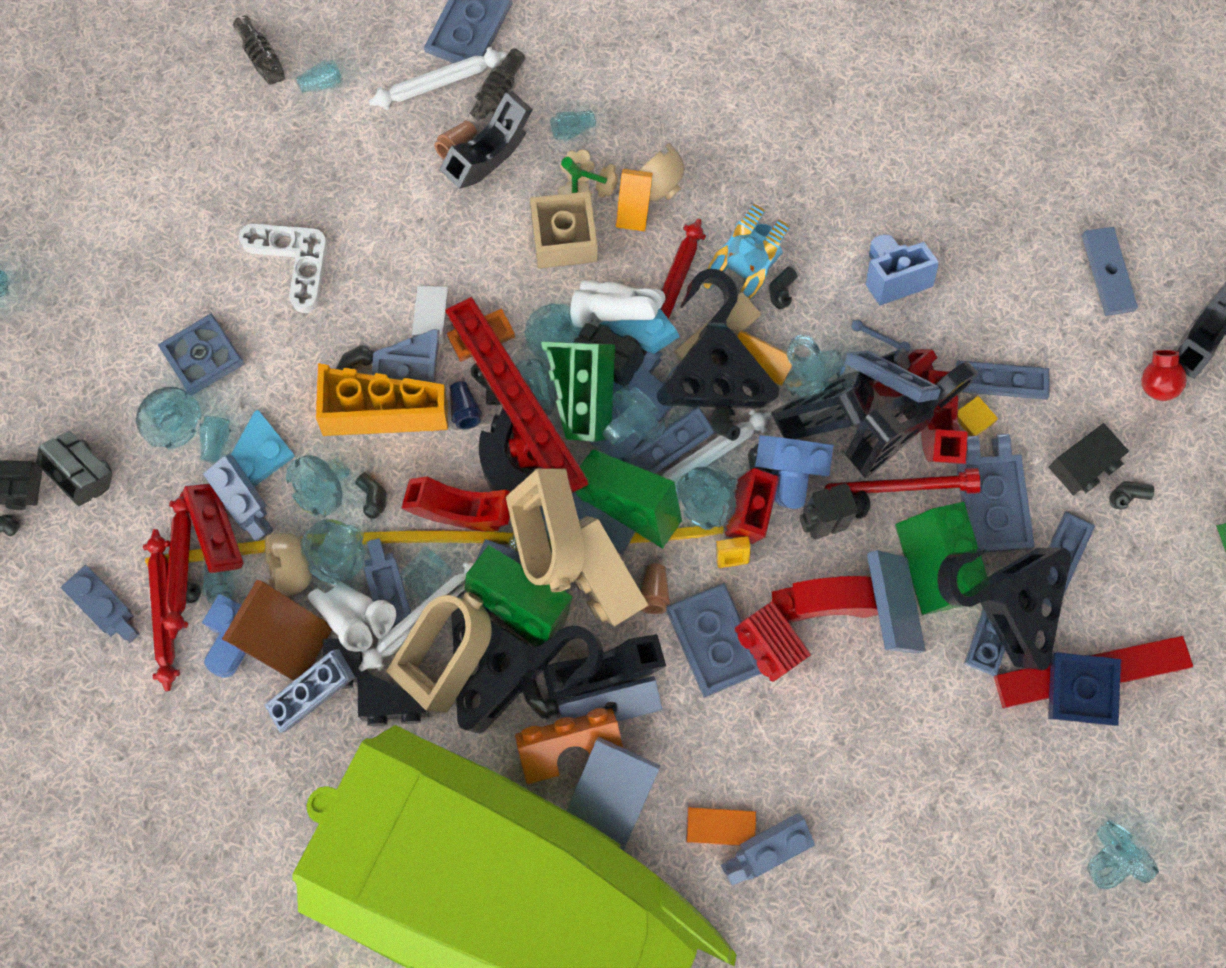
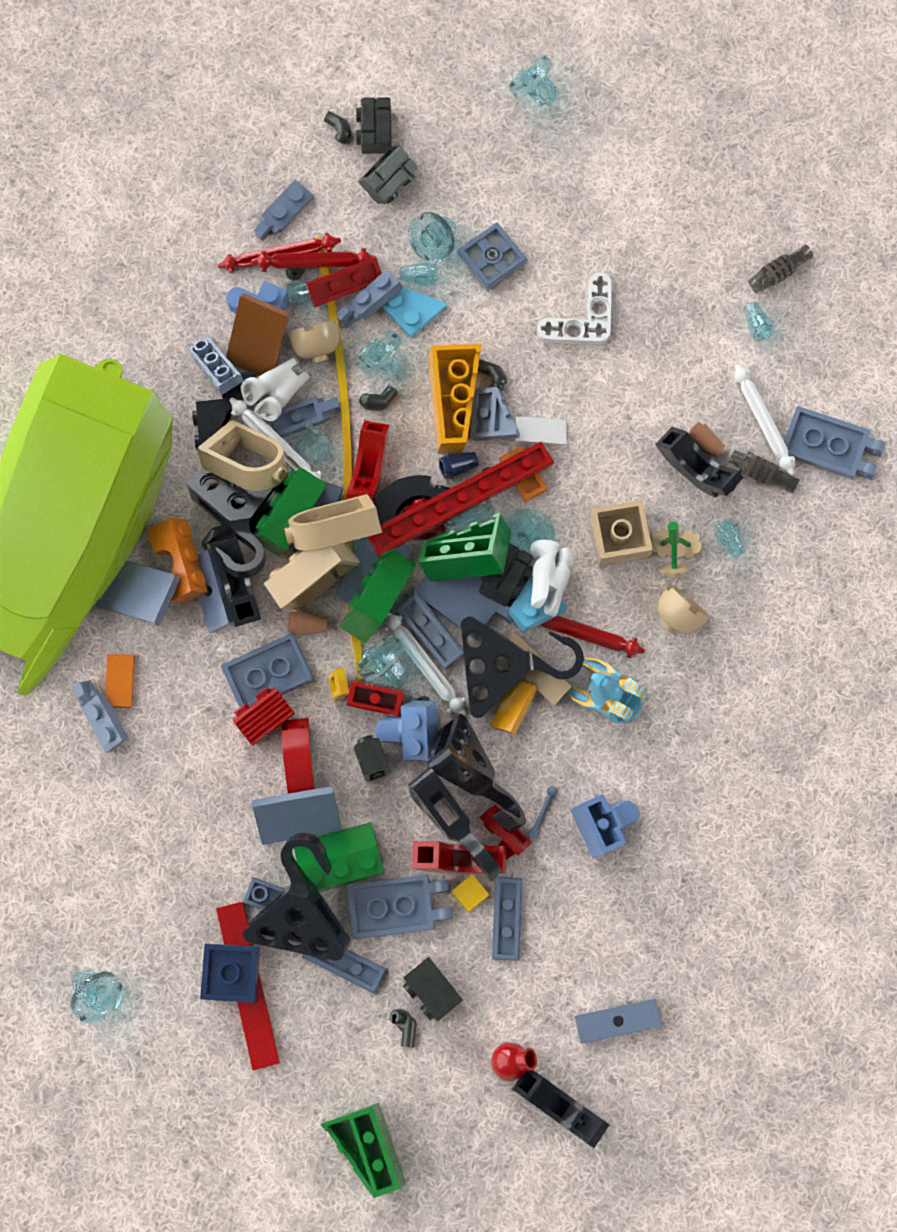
camera: 90 degrees right, 5 degrees up
(333, 550) = (325, 371): clear light blue tile -> none
(634, 200) = (652, 590): light orange tile -> none
(635, 416) = (444, 595): clear light blue tile -> none
(723, 424) = (450, 672): pearl dark grey arm -> none
(778, 288) = (582, 722): pearl dark grey arm -> none
(813, 371) = (499, 745): clear light blue tile -> none
(863, 504) = (385, 787): black piece -> none
(893, 376) = (485, 804): sand blue tile -> none
(965, 481) = (404, 876): red piece -> none

